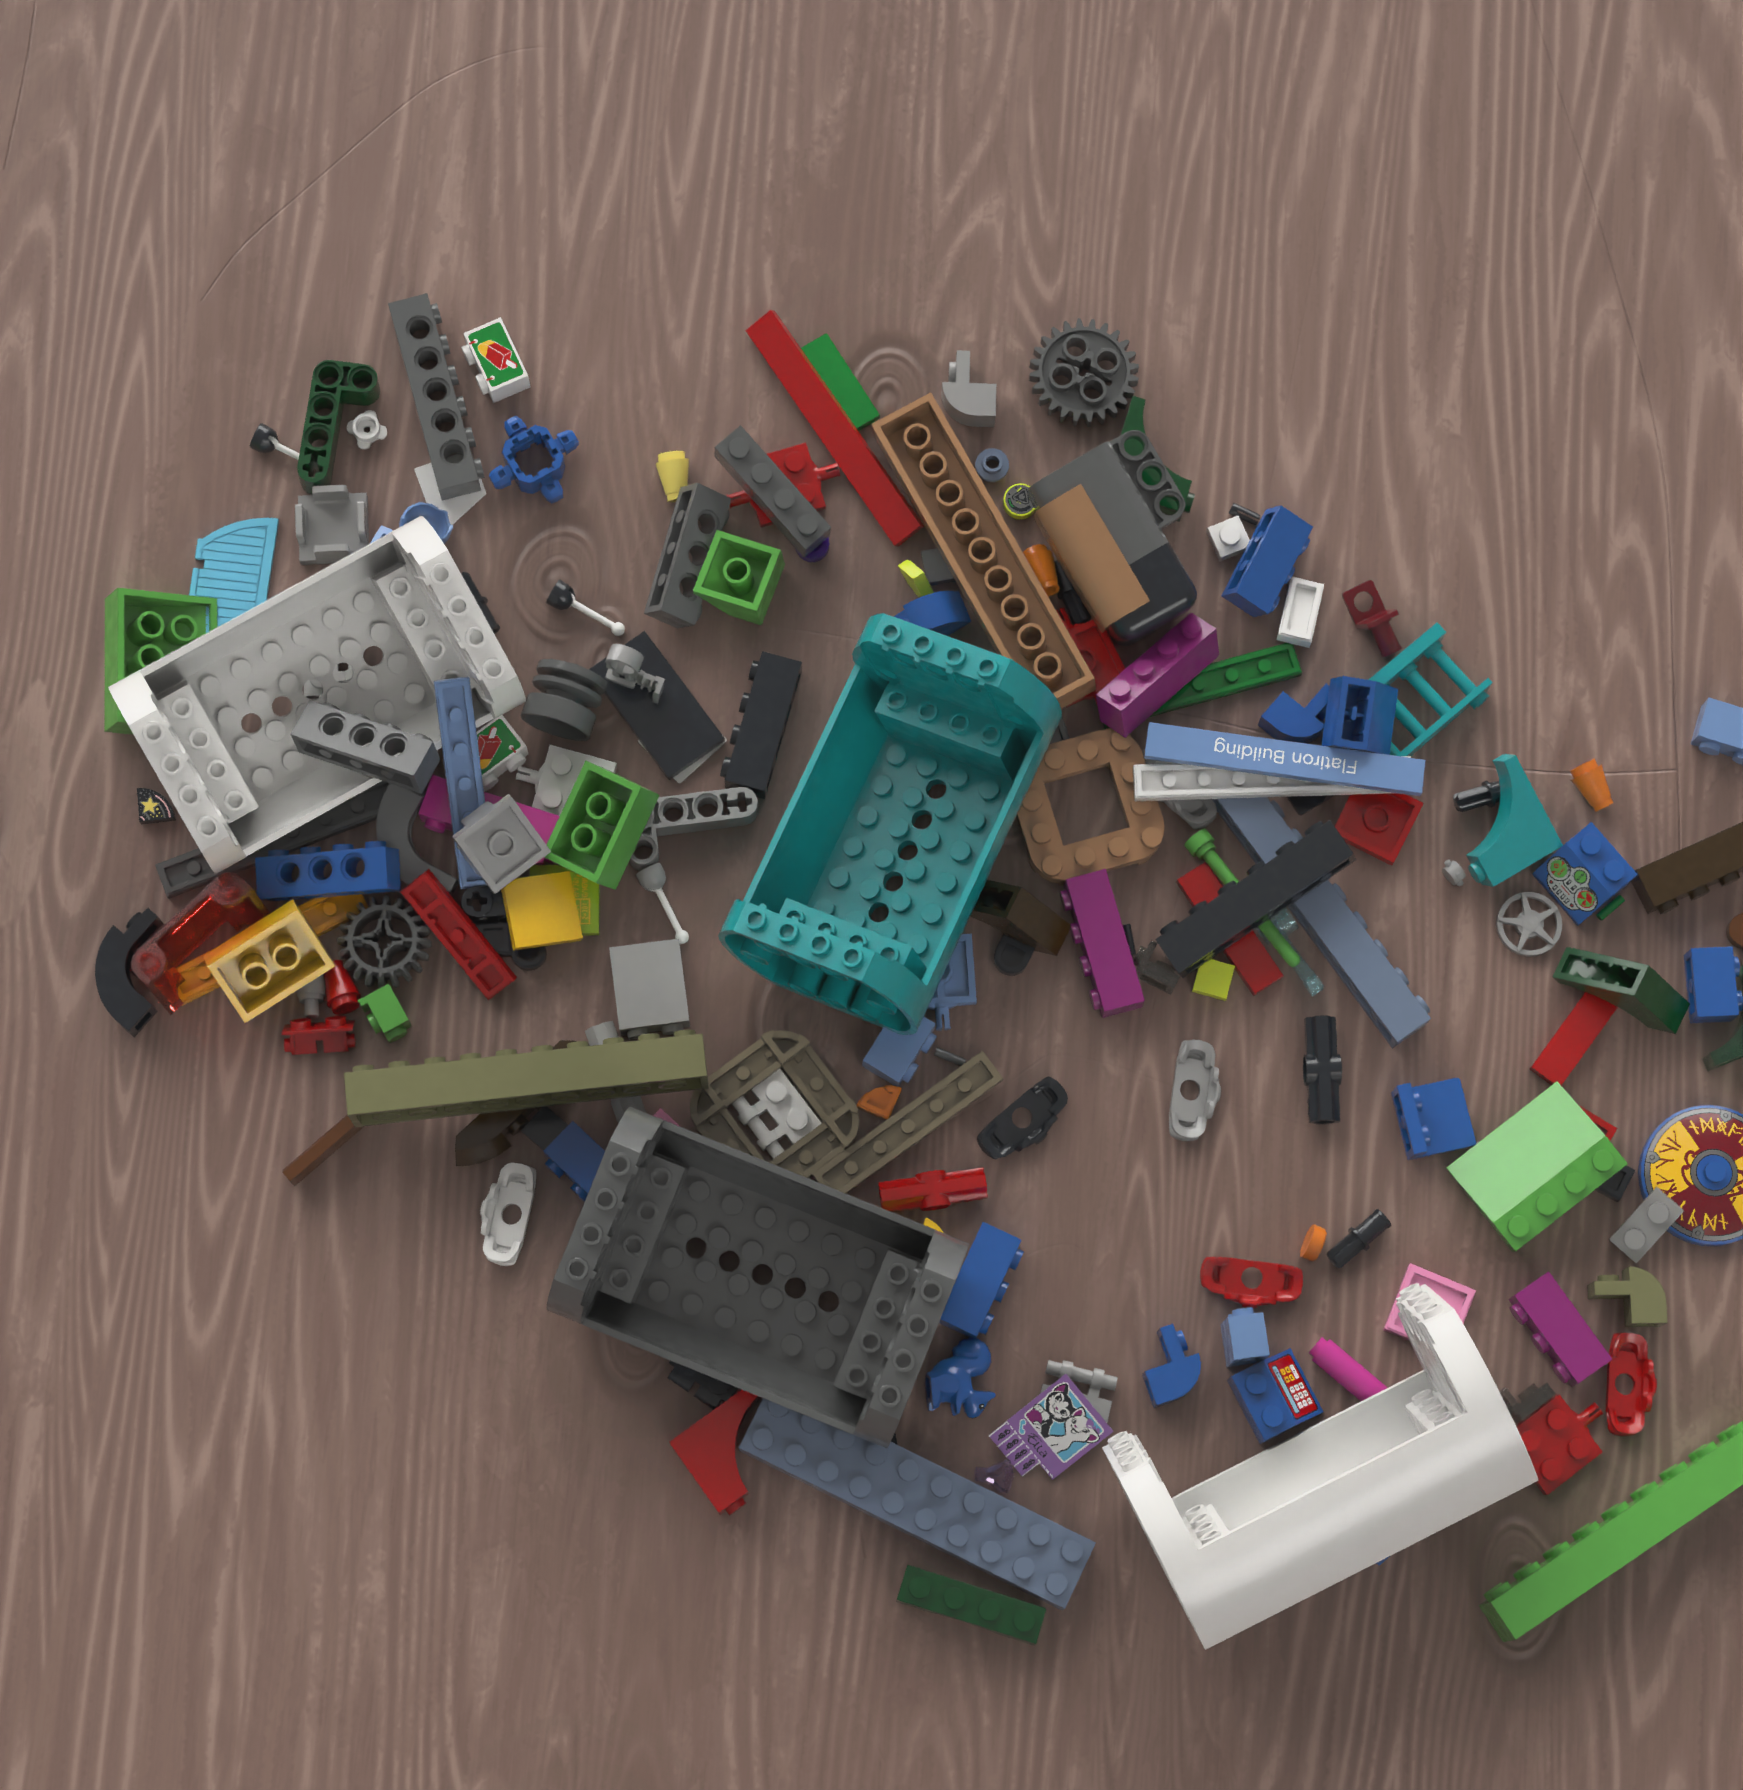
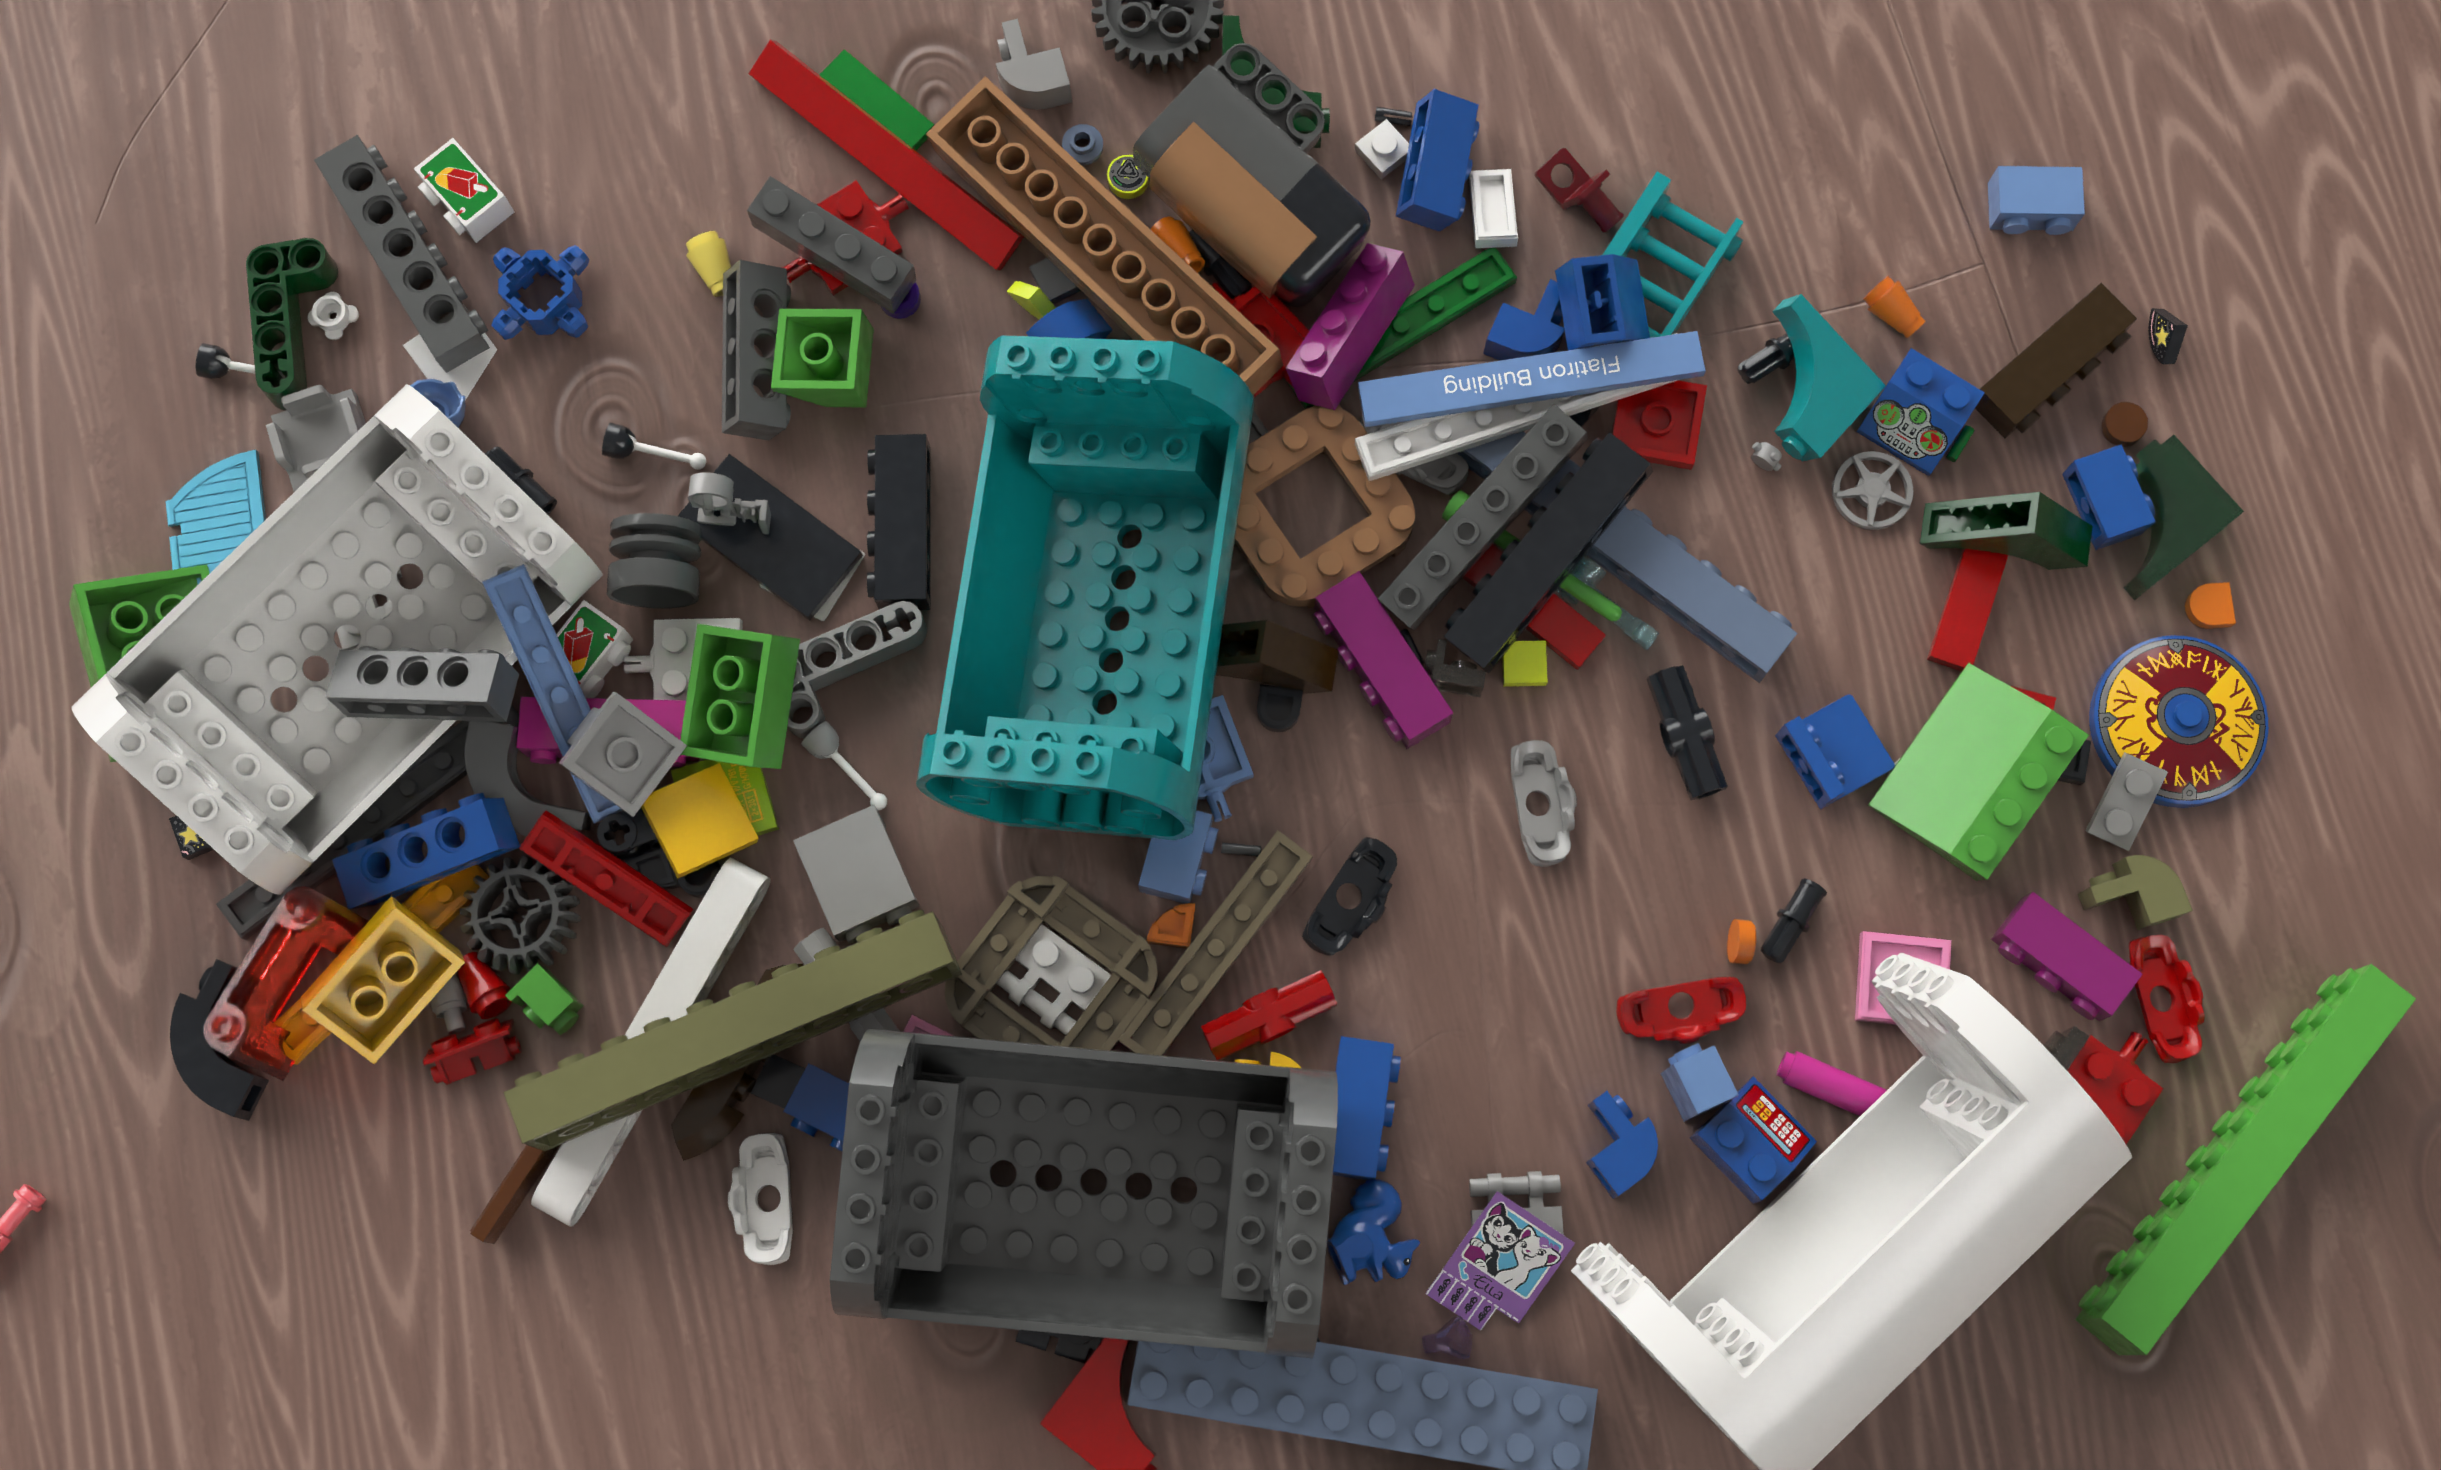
camera: 10 degrees left, 0 degrees up
(491, 1033) = (682, 982): none -> white beam
(1214, 856) = (1484, 517): none -> dark grey brick

